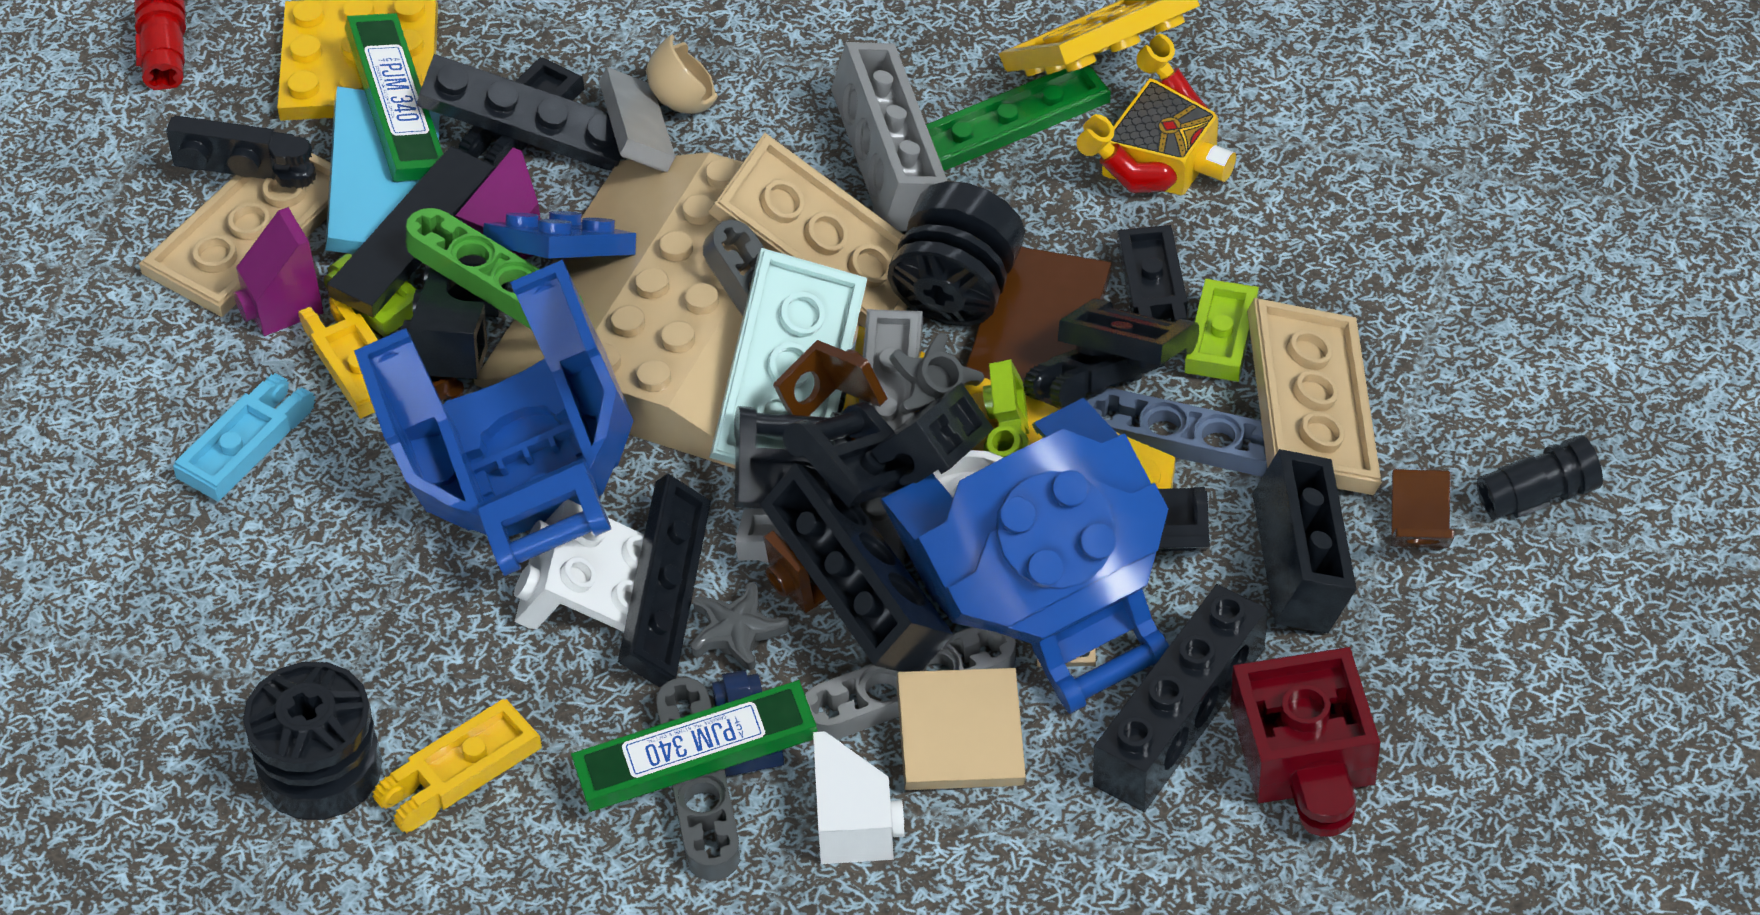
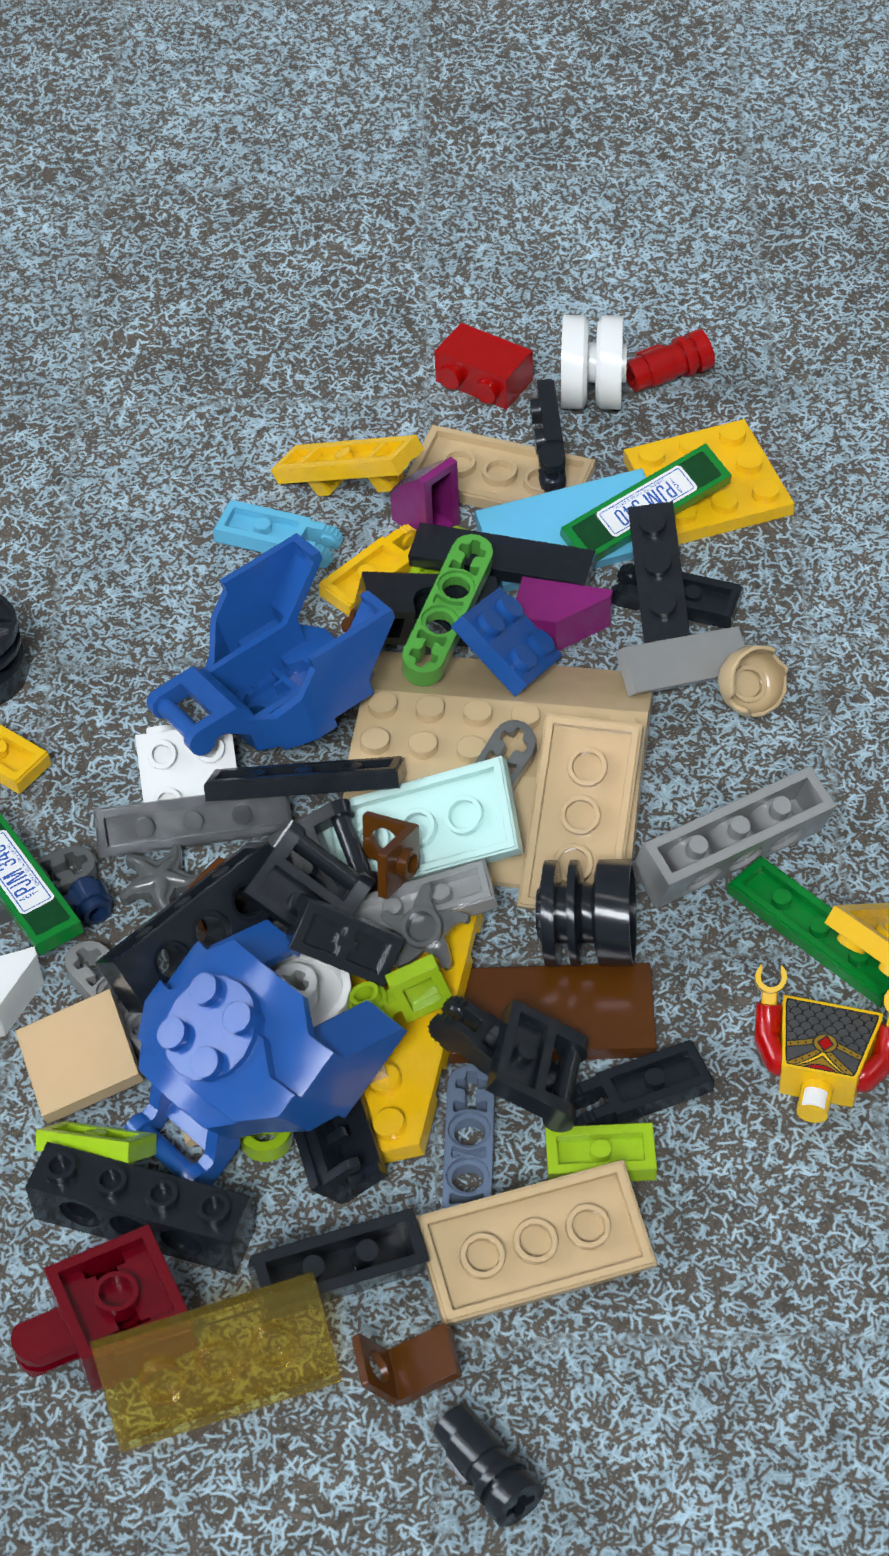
camera: 75 degrees right, 0 degrees up
(73, 194) = (483, 366): none -> red piece
(145, 81) = (592, 362): none -> white wheel
(195, 326) = (330, 462): none -> yellow hinge
(685, 444) = (305, 778): none -> black tile
(1099, 701) = (99, 1140): none -> lime plate
(1393, 652) = (216, 1361): none -> clear yellow tile

